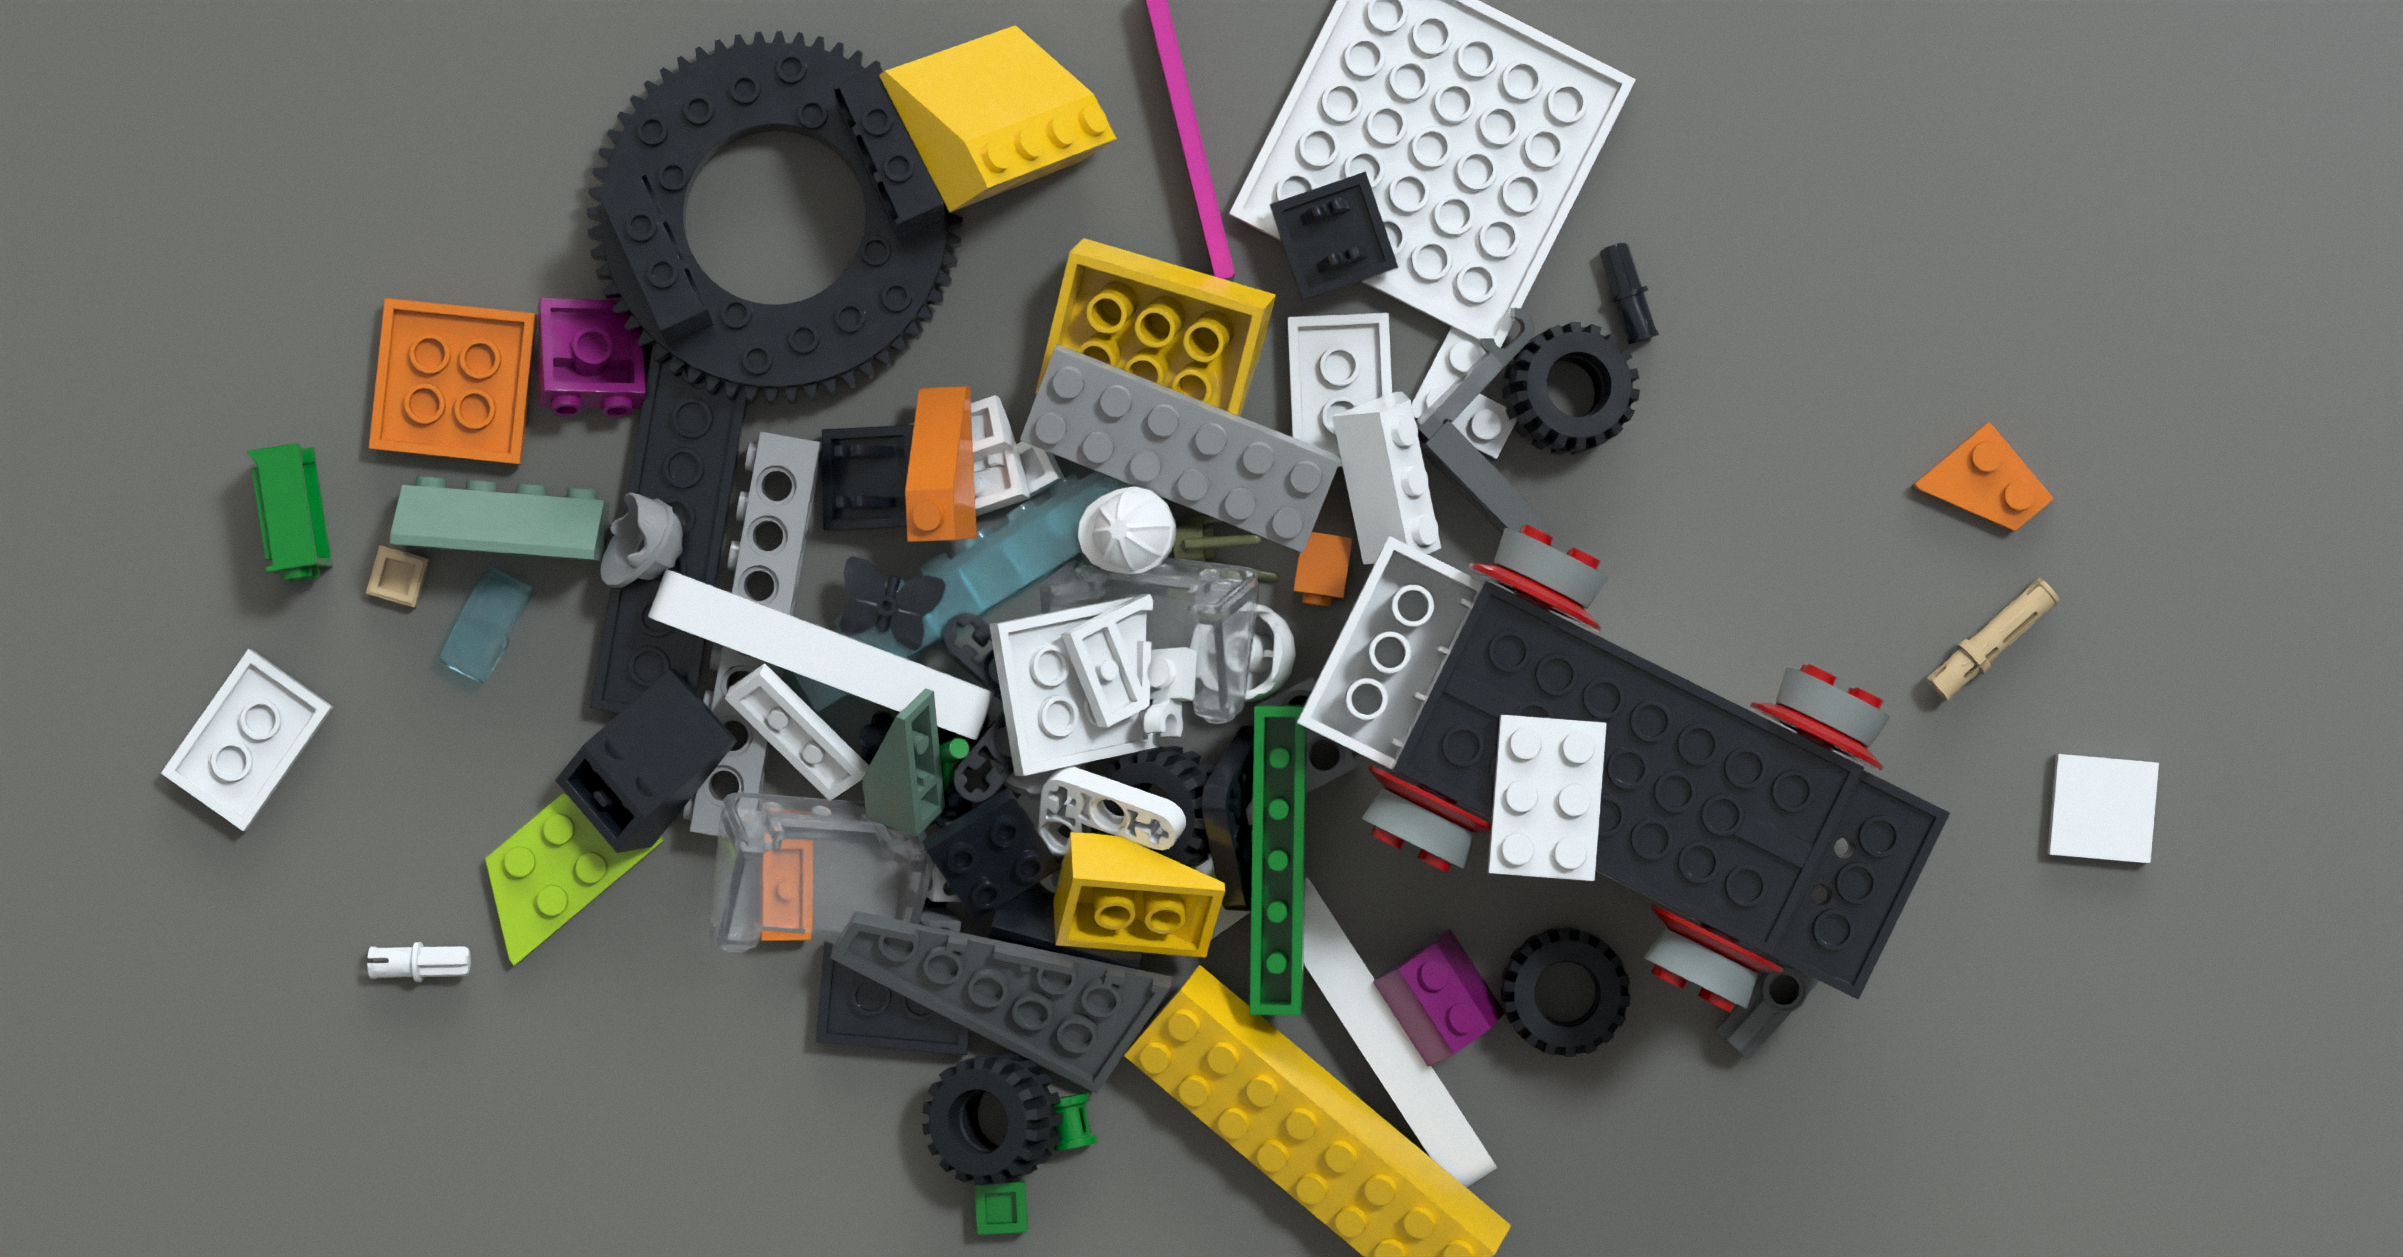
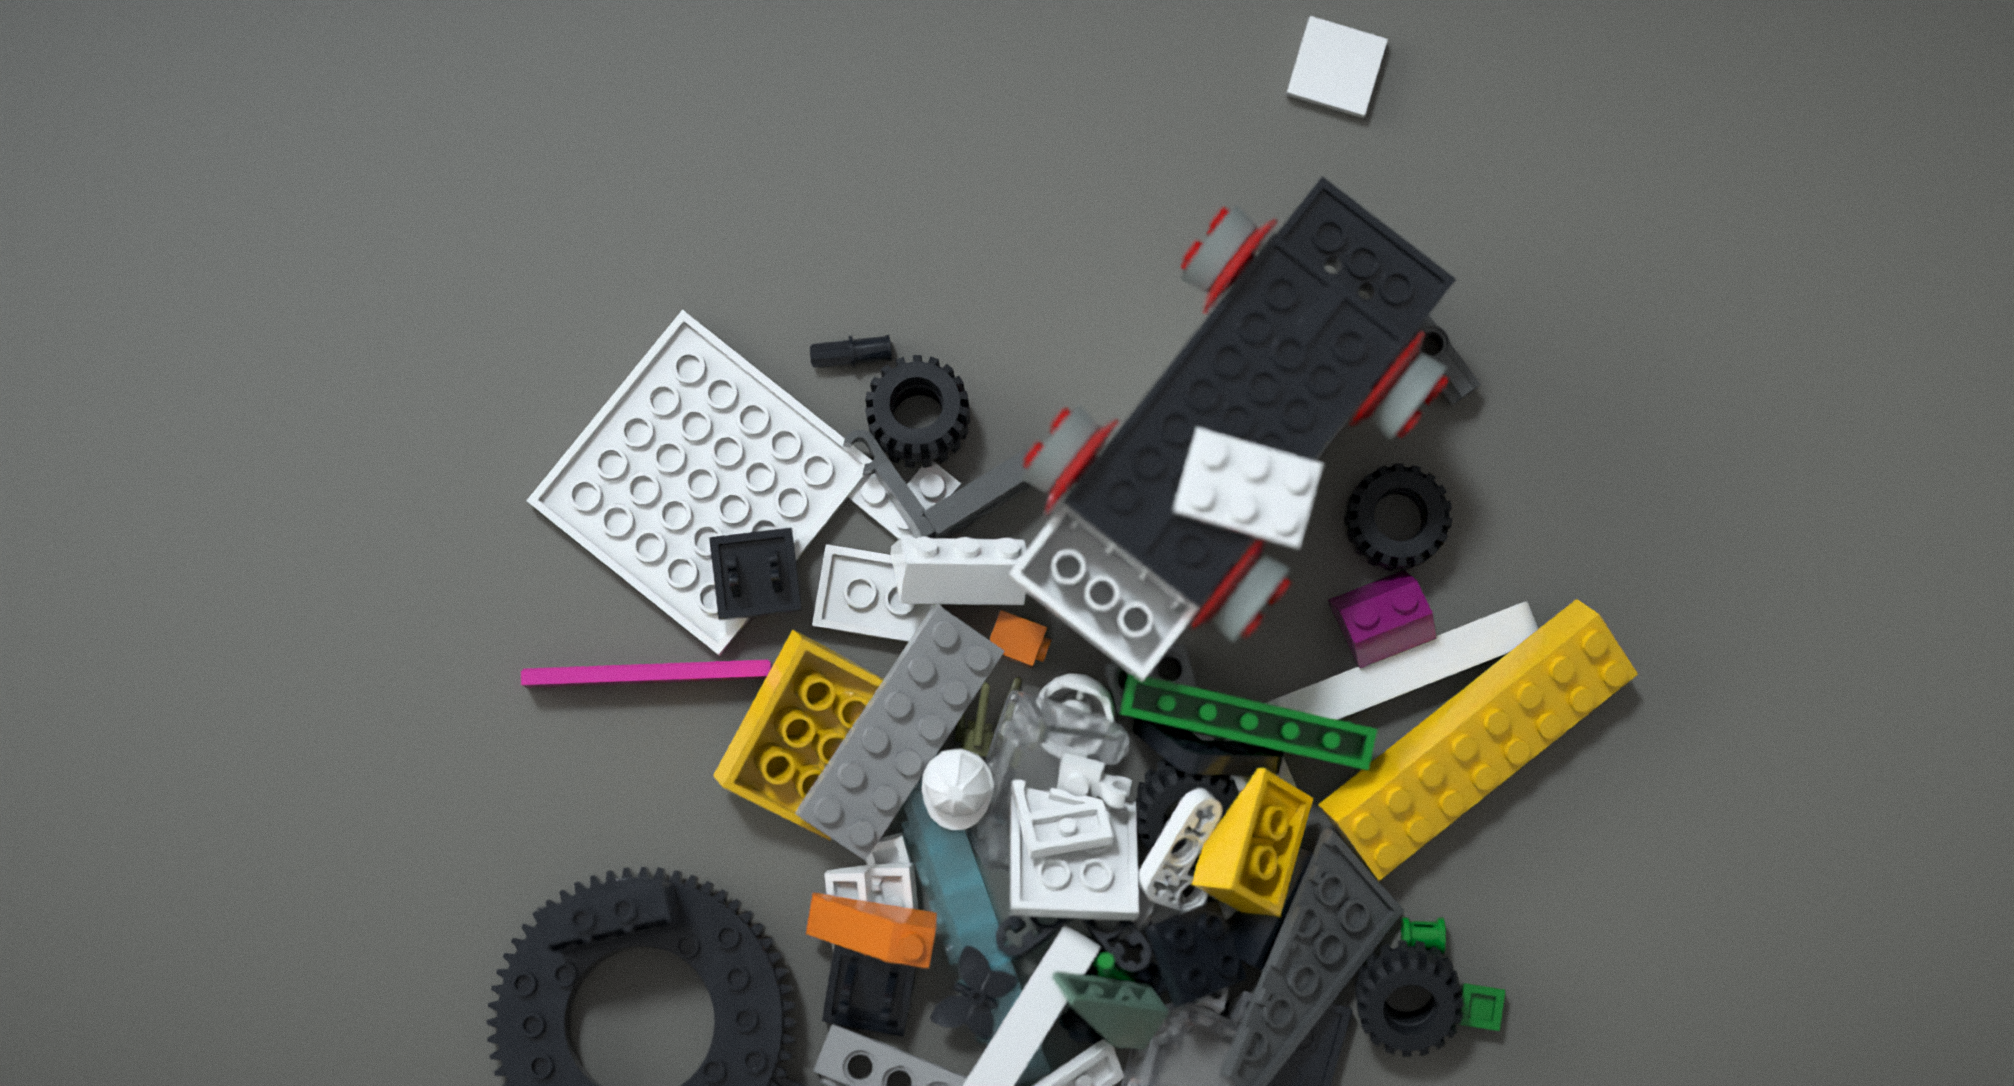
camera: 80 degrees left, 5 degrees down
(995, 115) = (599, 825): yellow slope -> none
(1985, 646) = (1180, 114): tan pin -> none
(1987, 481) = (1059, 102): orange wing -> none

